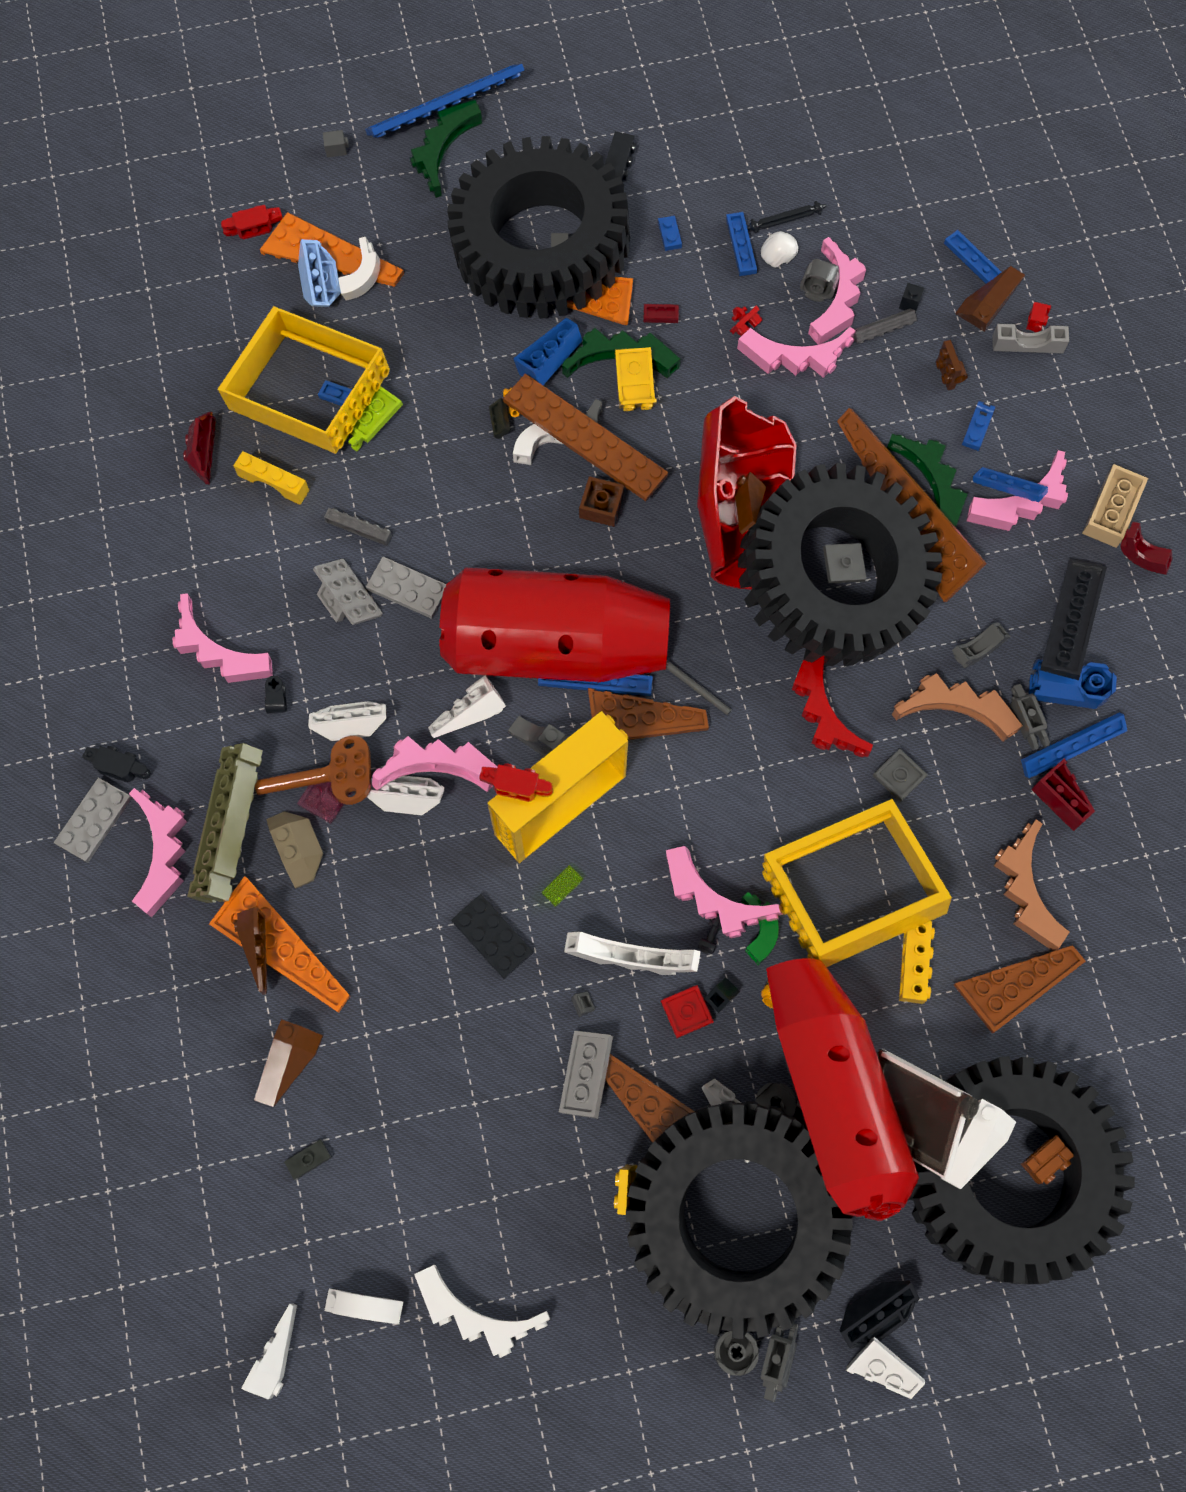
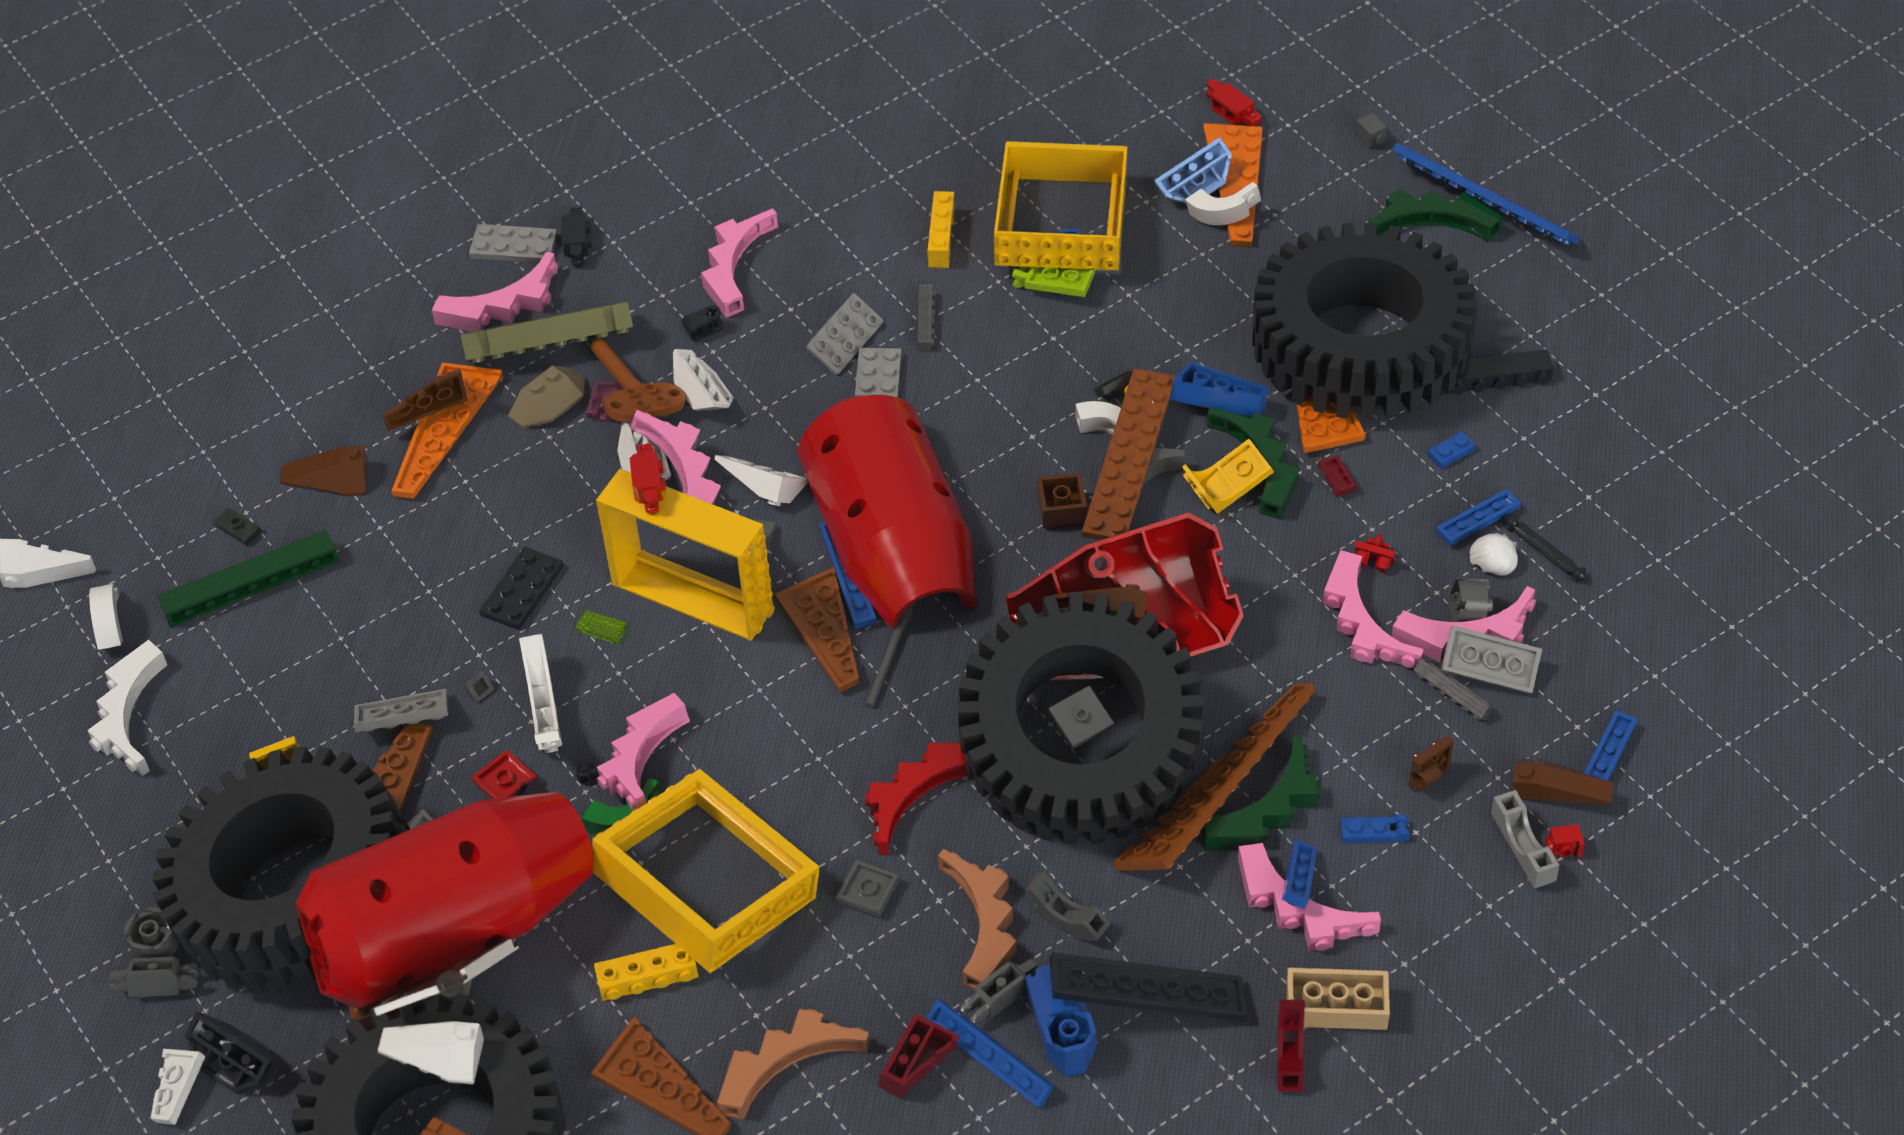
camera: 70 degrees right, 20 degrees down
(200, 446) = (948, 163): dark red wedge -> none
(377, 1166) = (248, 578): none -> dark green brick
(876, 290) = (1491, 659): none -> light grey plate
(911, 297) = (1507, 702): black brick -> none

